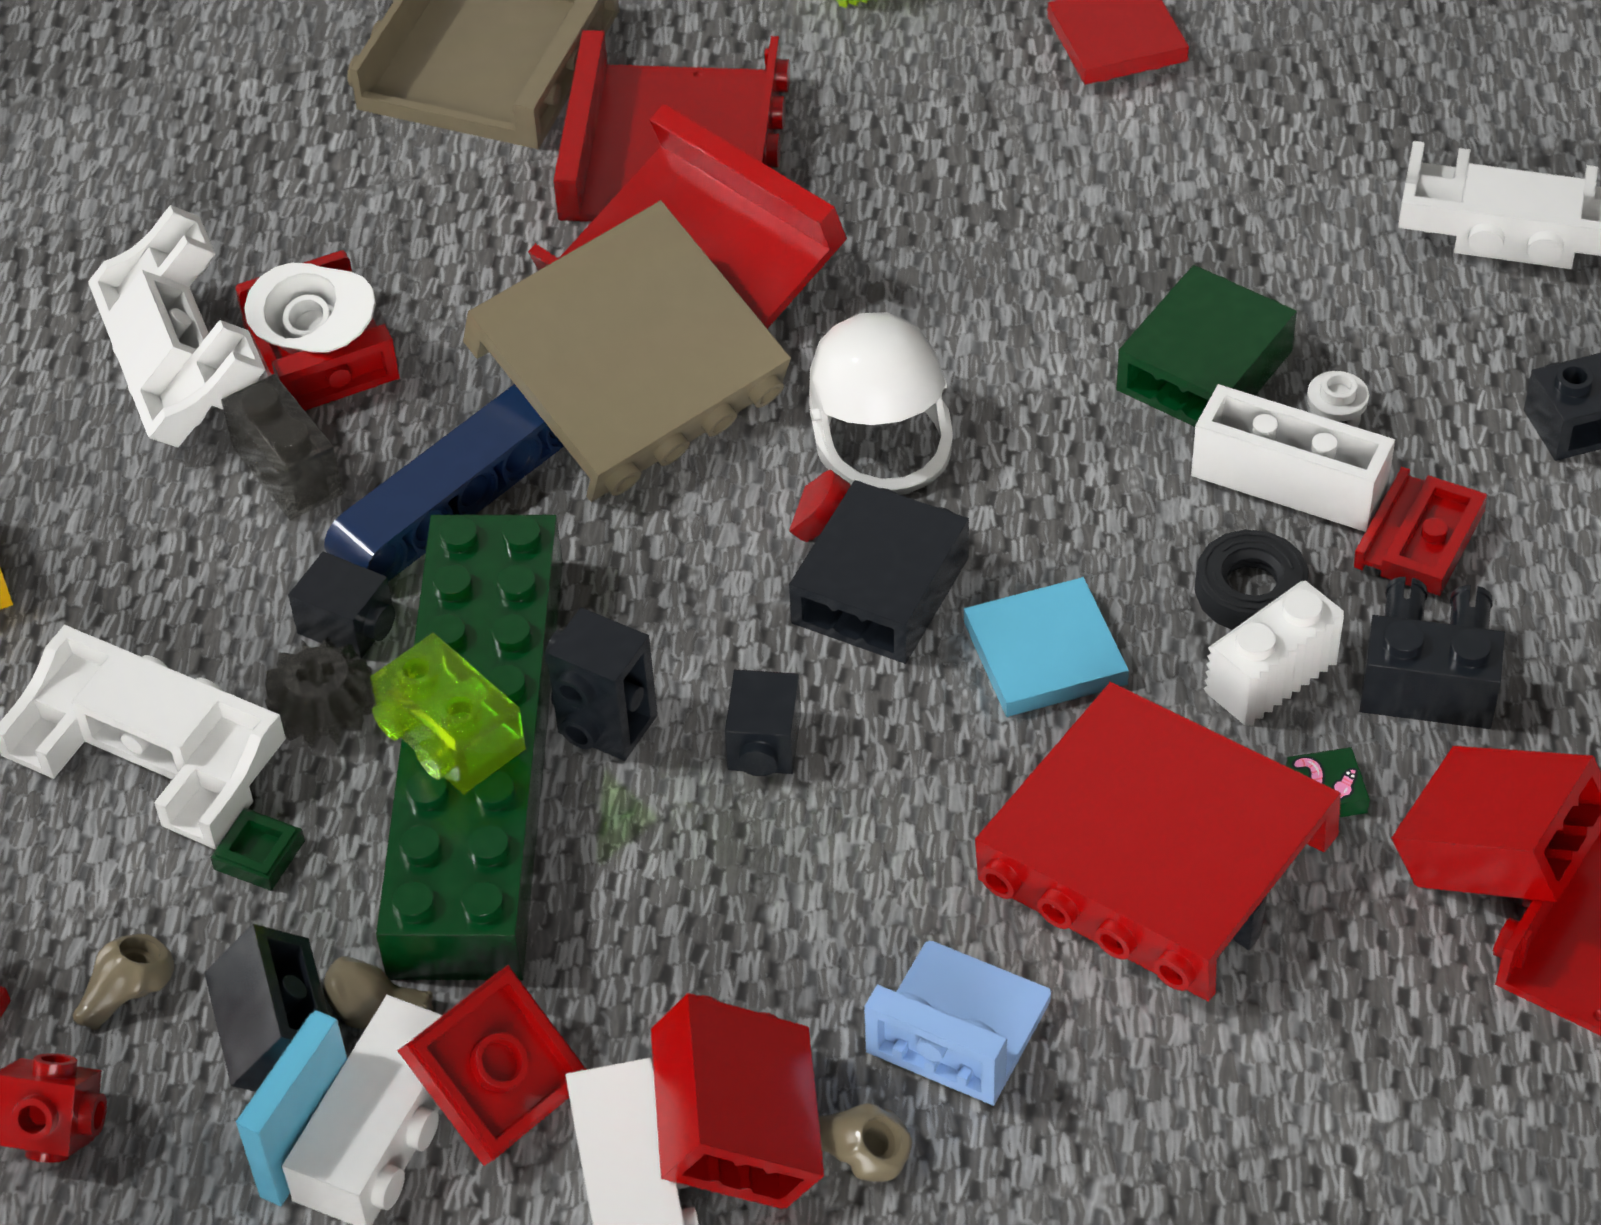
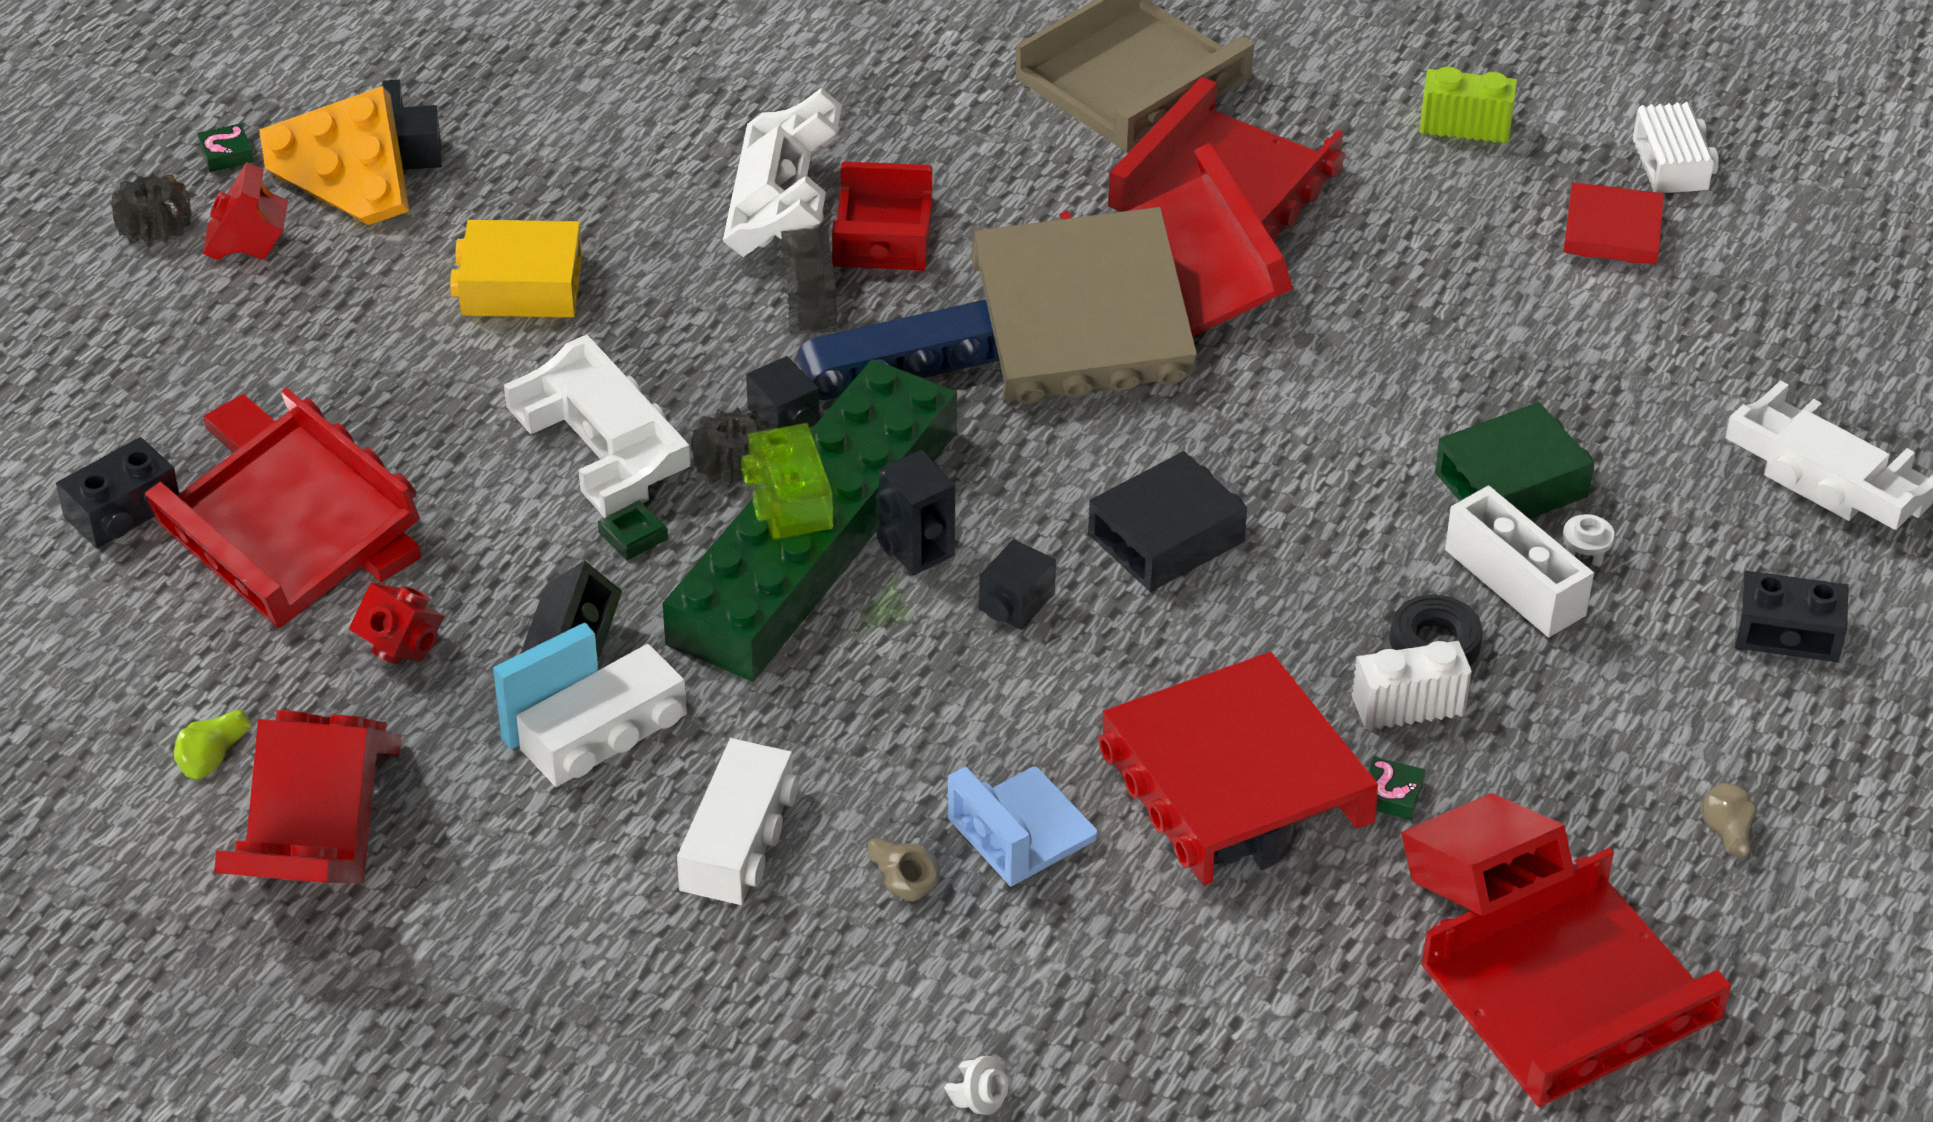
camera: 25 degrees right, 5 degrees down
(123, 971) = (499, 567): dark tan animal -> none
(309, 307) = (879, 193): white piece -> none
(358, 989) = (636, 631): dark tan animal -> none
(493, 1064) = (688, 713): red plate -> none
(736, 1102) = (829, 801): red brick -> none
(818, 504) = (1156, 457): red tile -> none
(875, 374) = (1243, 383): white piece -> none
(1045, 646) = (1254, 616): medium azure tile -> none
(1421, 530) = (1587, 651): red plate -> none
(1433, 667) = (1519, 741): black brick -> none

